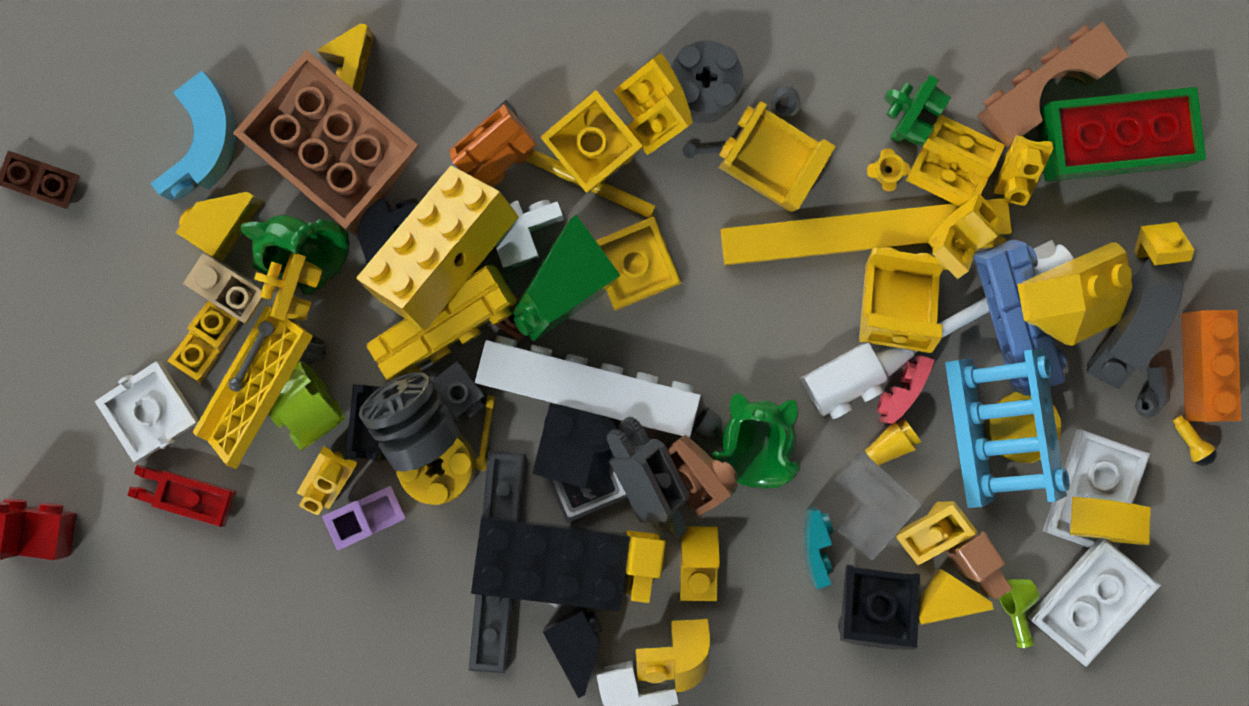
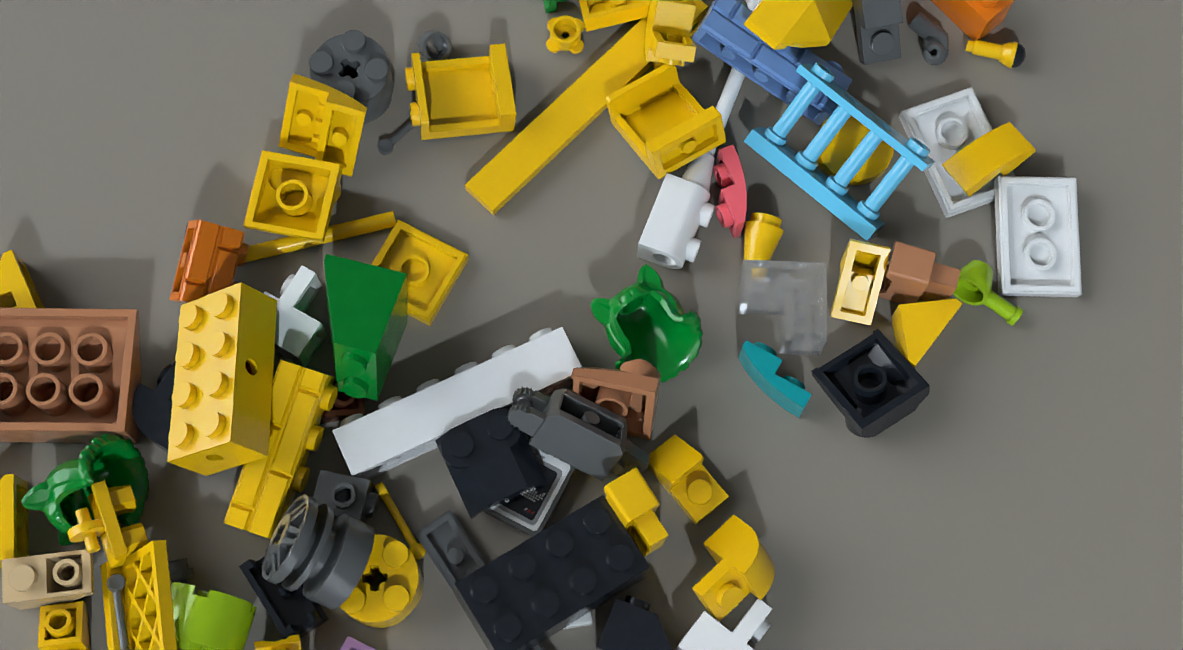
camera: 35 degrees left, 15 degrees down
(706, 423) = (588, 352): dark grey hinge -> none

